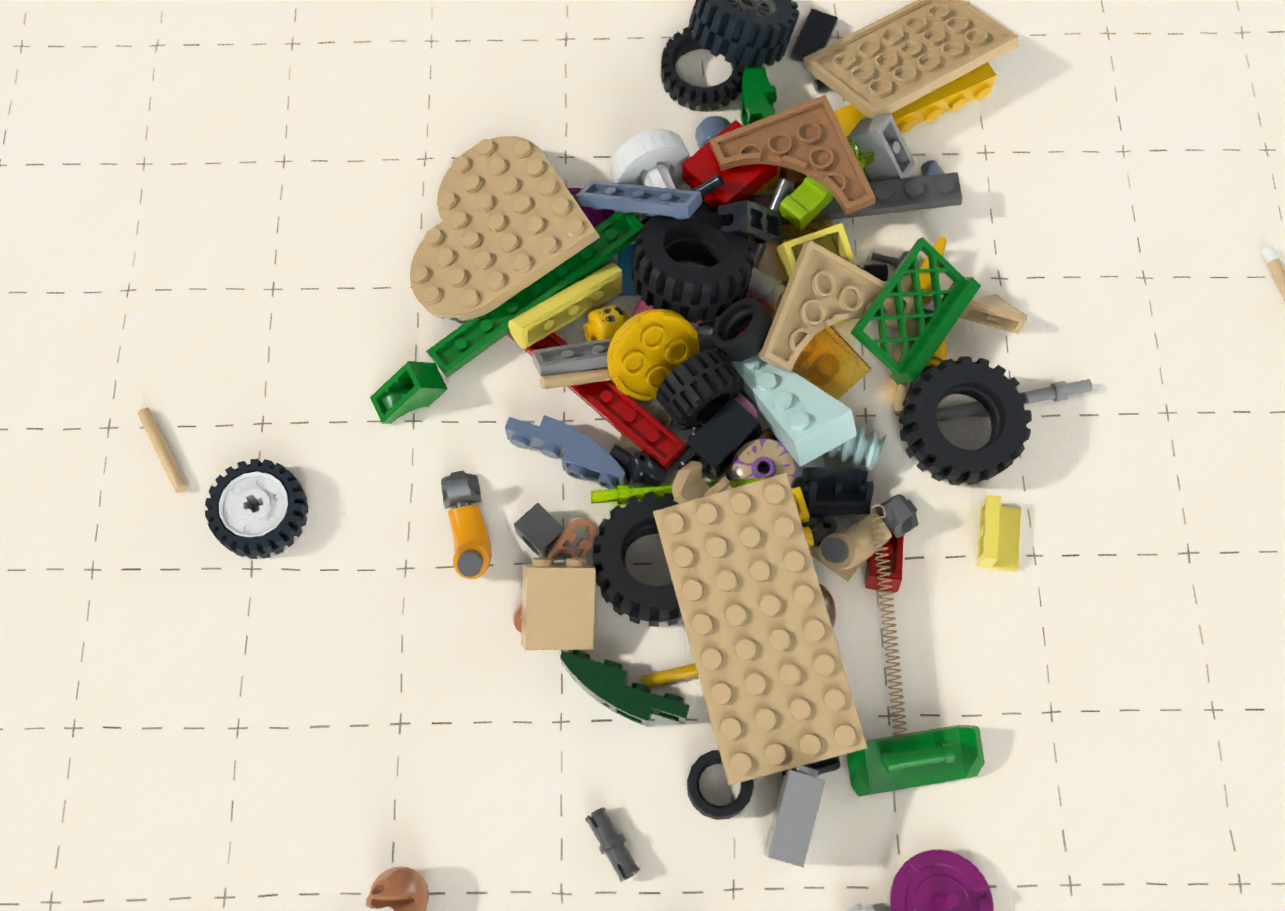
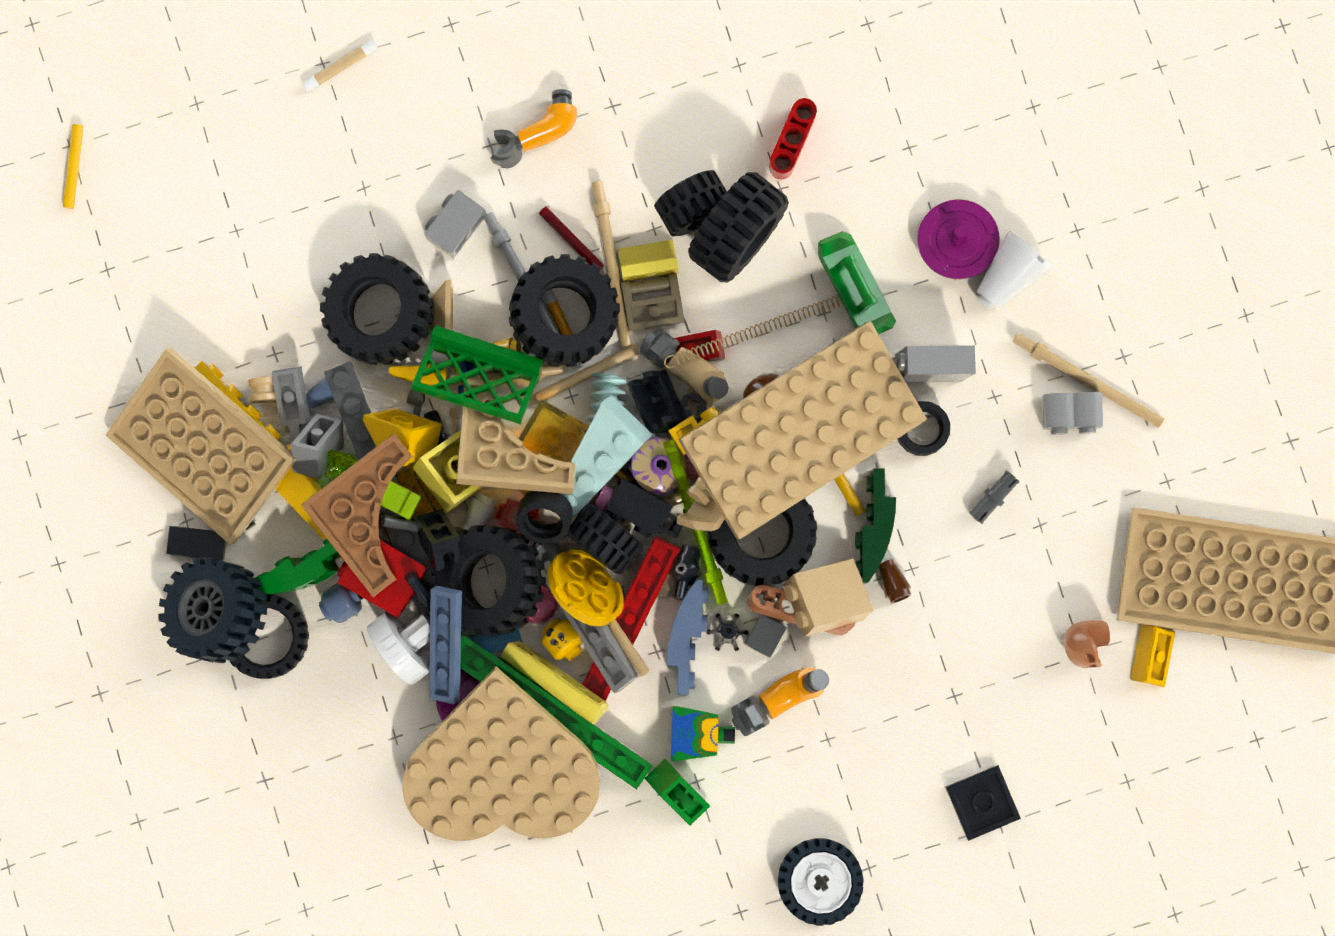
camera: 105 degrees left, 15 degrees up
(269, 715) = (982, 802): none -> black tile
(462, 429) = (697, 734): none -> torso
(551, 692) = (894, 582): none -> reddish brown cone
(558, 491) = (727, 631): none -> black piece
(874, 229) = (415, 432): none -> yellow slope
(885, 428) = (586, 373): none -> tan bar
(938, 146) = (291, 400): none -> light grey hinge
(939, 523) = (653, 311): none -> dark tan plate
(952, 126) = (262, 390): none -> tan wheel
(958, 425) = (558, 317): none -> light orange bar
(1020, 212) = (346, 290): none -> black tyre
(1020, 629) = (738, 227): none -> black tyre
(1041, 463) = (569, 237): none -> dark red bar
(1058, 594) = (689, 202): none -> black tyre
(1067, 503) = (602, 211): none -> tan bar
(1087, 347) = (454, 223): none -> light grey brick
(1128, 742) = (797, 126): none -> red beam
(1177, 475) = (555, 124): none -> piece
(1221, 27) = (73, 166): none -> yellow bar

